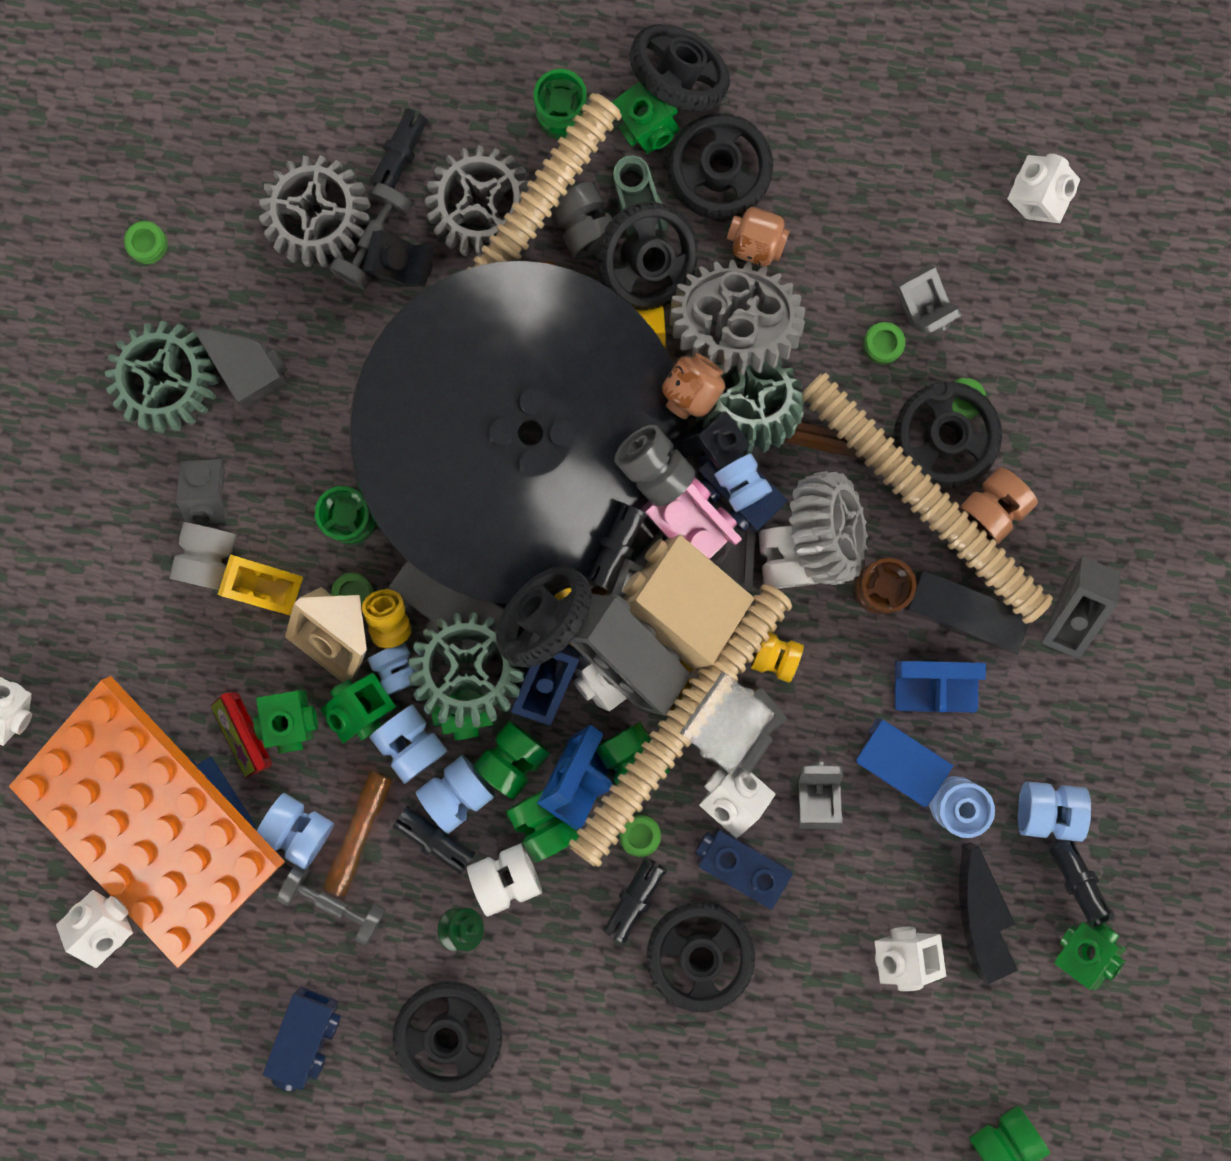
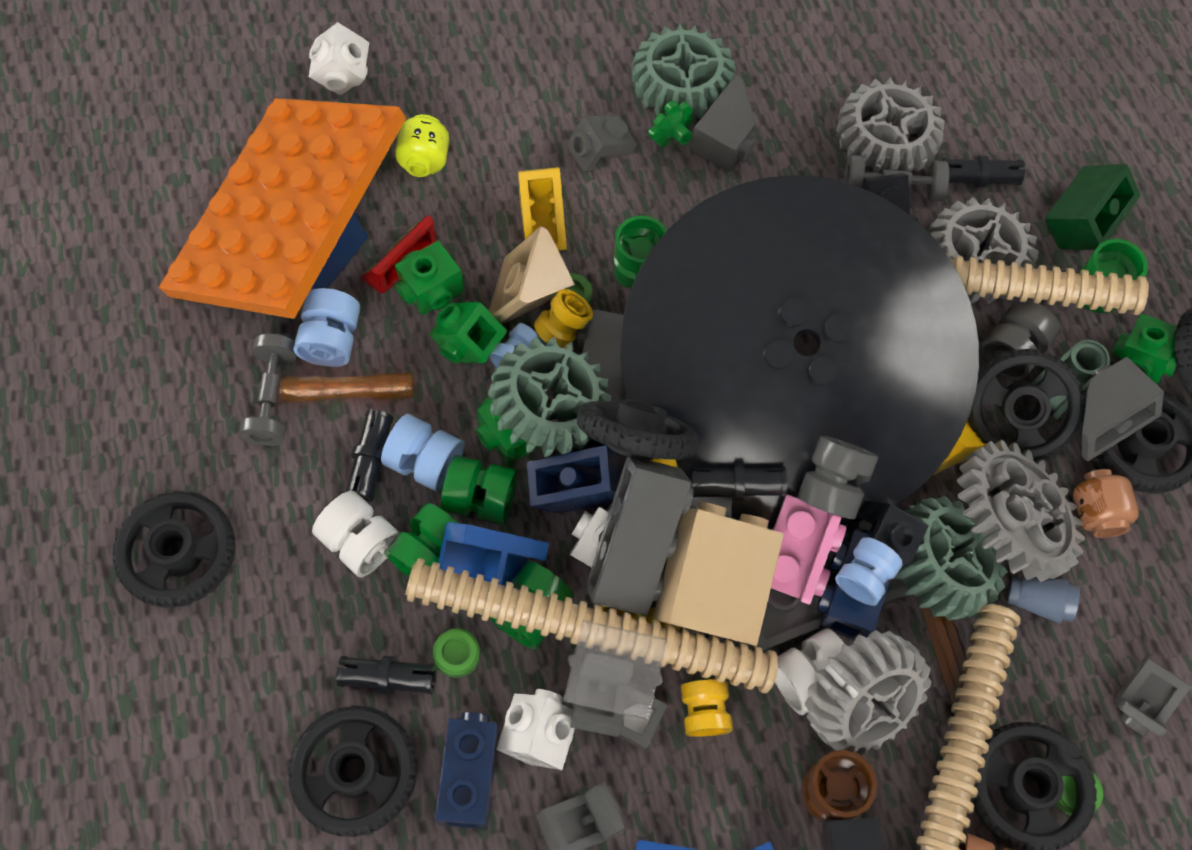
camera: 60 degrees right, 20 degrees down
(94, 928) = (170, 203): white brick -> none
(134, 665) = (422, 145): none -> neon yellow head
(145, 242) = (787, 24): bright green tile -> none
(202, 555) = (551, 152): light grey wheel -> none
(220, 417) = (672, 124): none -> green plant
(301, 1038) = (125, 415): dark blue brick -> none
(419, 755) = (450, 396): light blue wheel -> none
(460, 929) = (289, 515): dark green wheel -> none
(486, 75) = (1092, 206): none -> dark green brick
(688, 184) = (1117, 405): none -> dark grey slope
(693, 386) = (933, 485): nougat head -> none
(818, 331) = (1049, 599): none -> sand blue cone
(884, 343) = (1080, 677): bright green tile -> none

